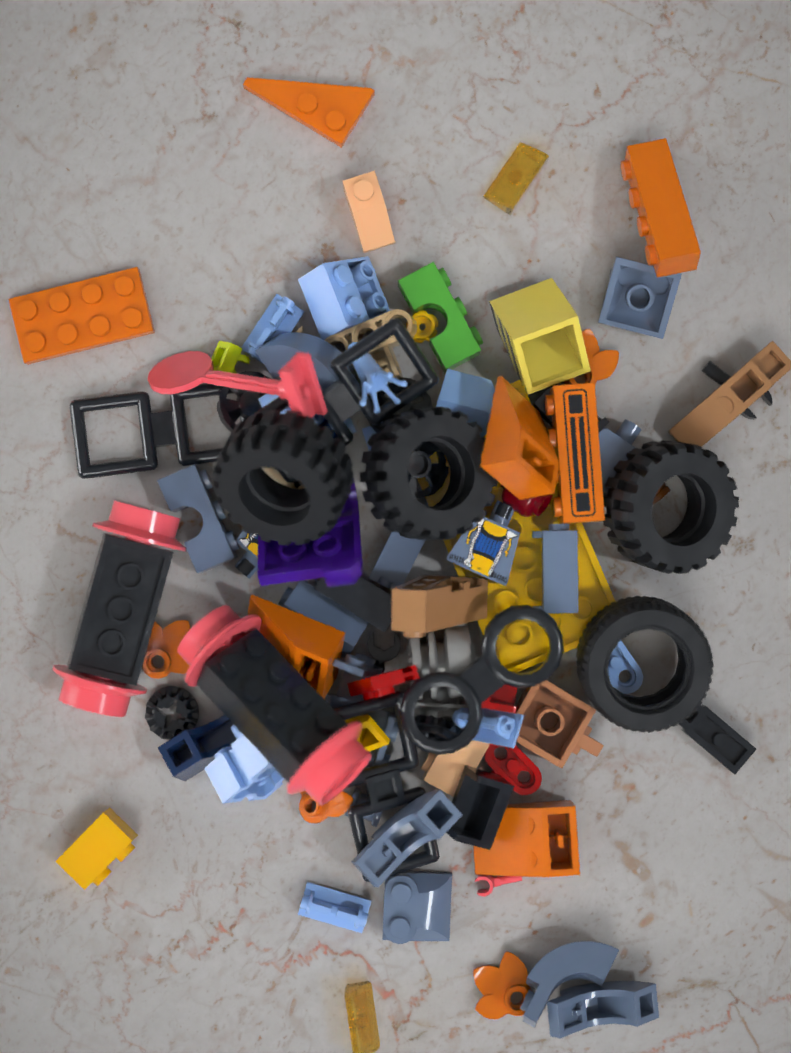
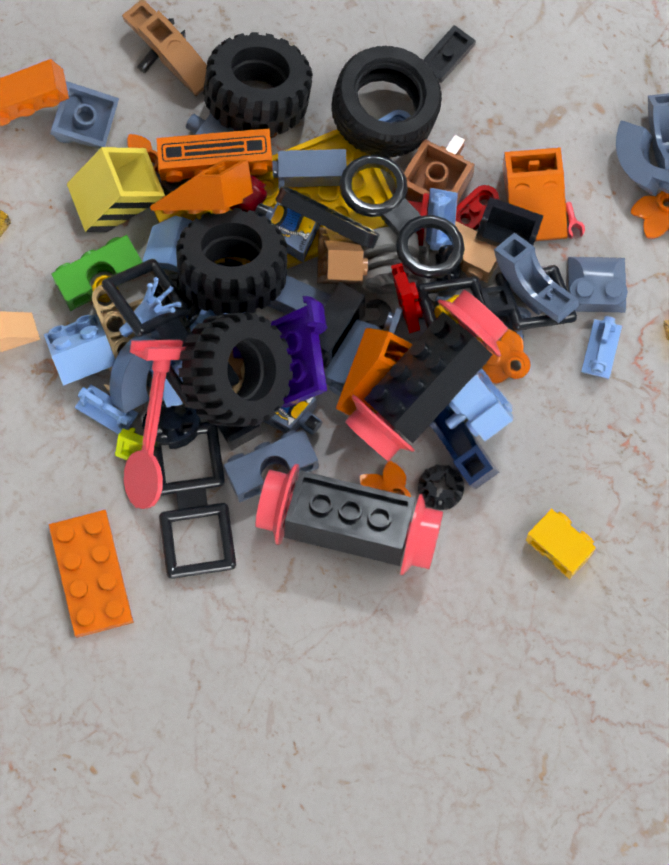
camera: 90 degrees left, 15 degrees down
(482, 589) = (327, 217): none -> black beam

